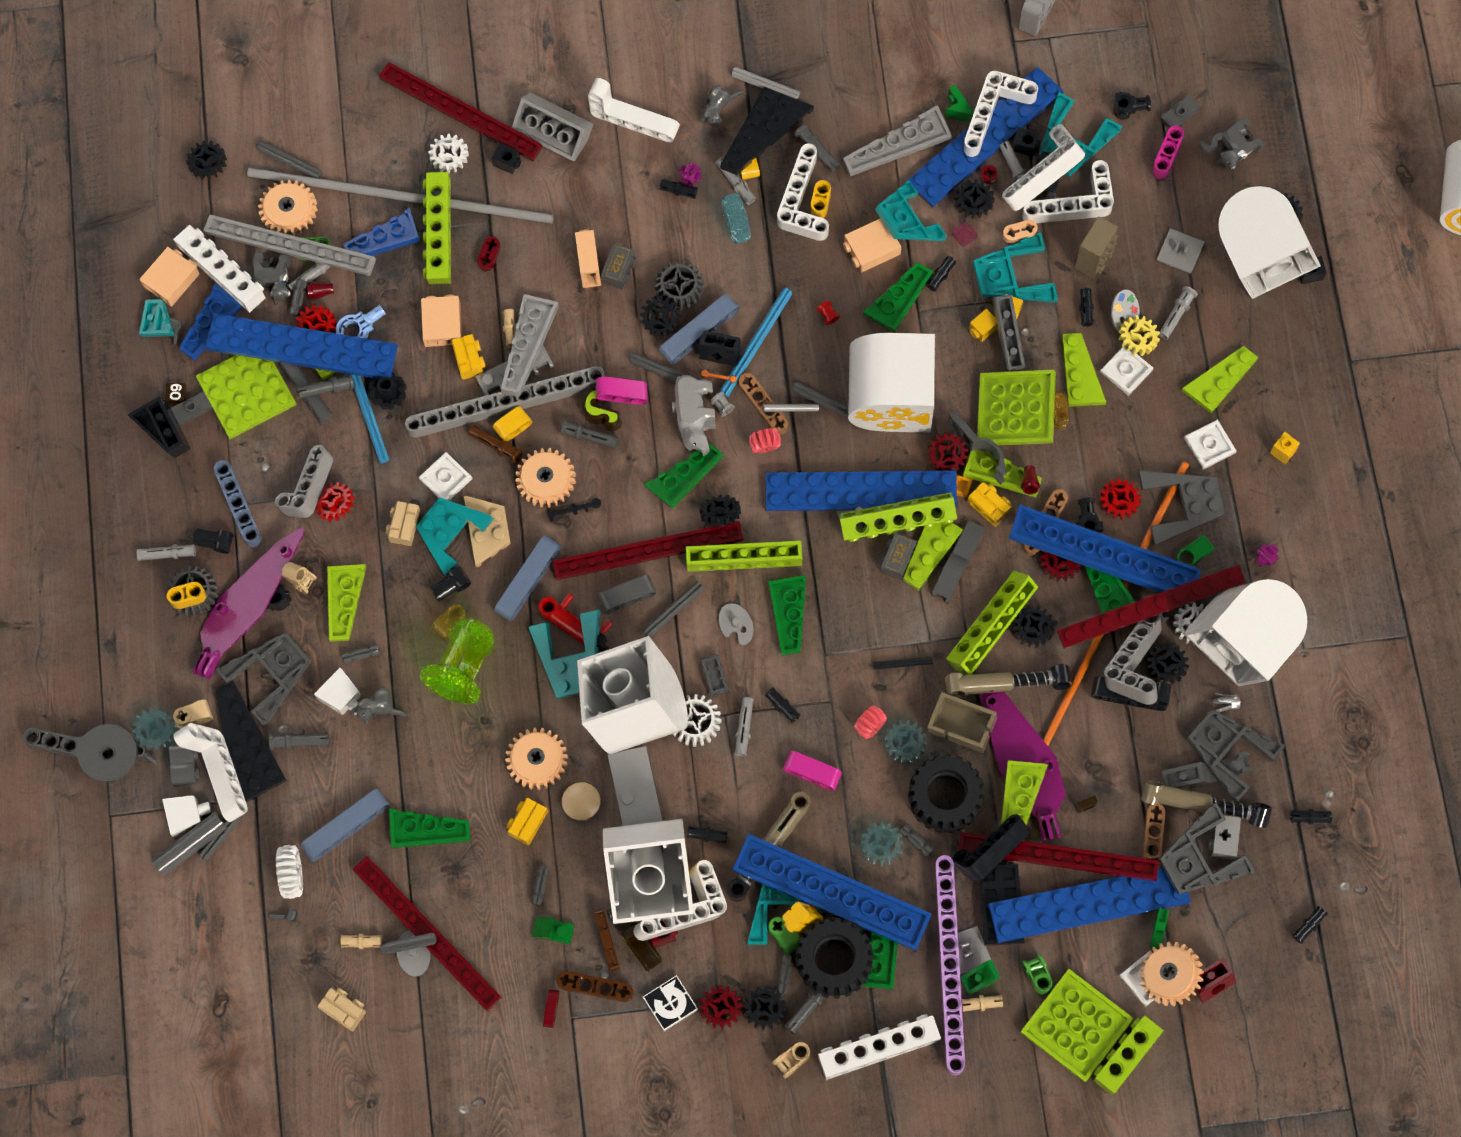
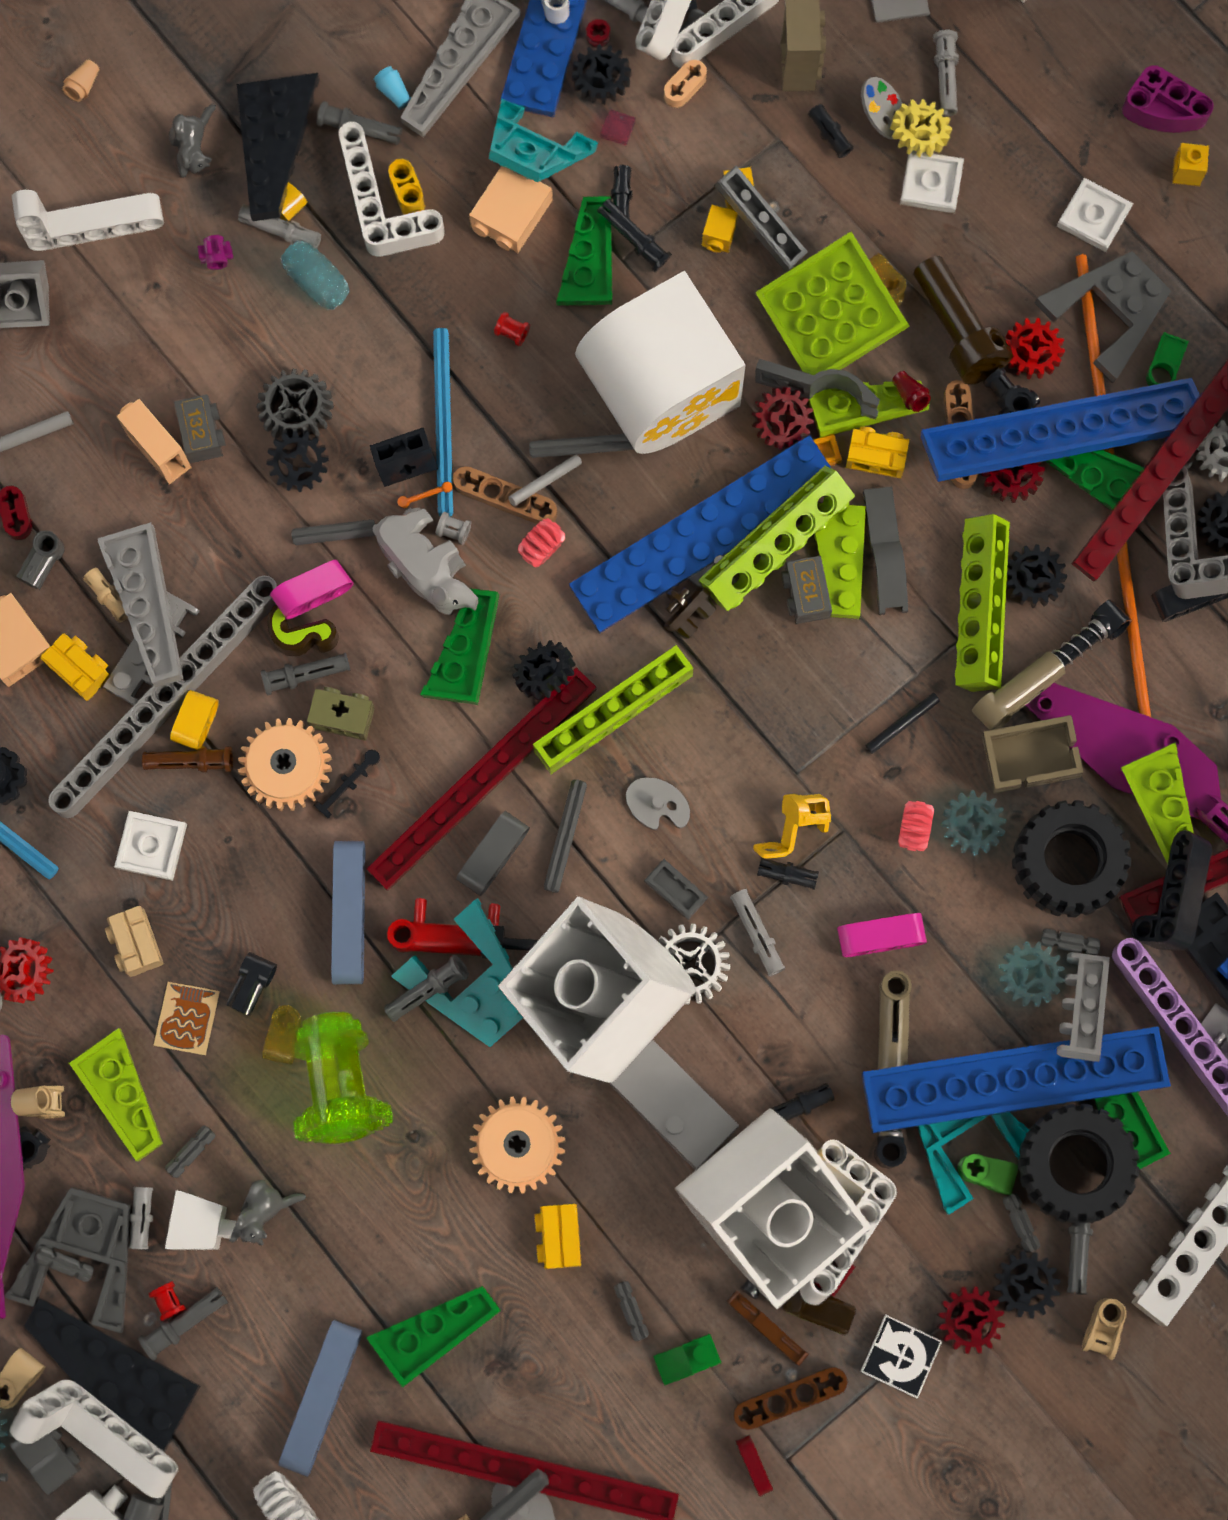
camera: 35 degrees left, 5 degrees up
(256, 670) = (63, 1264): none -> dark grey axle
(297, 723) = (167, 1301): none -> red bush
(320, 662) = (140, 1218): none -> light grey pin
(405, 582) = (186, 1018): none -> sticker
(443, 524) = (189, 912): teal wing -> none
(484, 288) = (38, 562): none -> dark grey piece
(495, 537) = (250, 879): tan wing -> none
(549, 643) = (437, 982): none -> dark grey pin
(581, 801) = (611, 1164): tan dish -> none
(596, 477) = (350, 724): none -> olive brick
(678, 35) = (79, 82): none -> light nougat cone
(678, 188) = (211, 280): black pin -> none
(691, 334) = (356, 454): sand blue beam -> none
(762, 82) = (230, 80): light grey axle -> none
(788, 609) = (710, 740): green wing -> none
(801, 917) = (1003, 1139): yellow brick -> none
(808, 675) = (798, 813): none -> yellow piece
(831, 526) = (680, 619): none -> dark brown hips
(850, 136) = (391, 85): none -> medium azure cone
(898, 878) = (1087, 1007): none -> light grey hinge
(934, 308) = (643, 243): none -> black pin
(997, 277) = (695, 156): teal wing -> none
(1081, 379) = (877, 219): lime wing -> none
(1084, 478) = (976, 349): none -> dark brown piece
(1217, 382) = (1053, 130): lime wing -> none
(1288, 405) = (1159, 109): none -> magenta beam

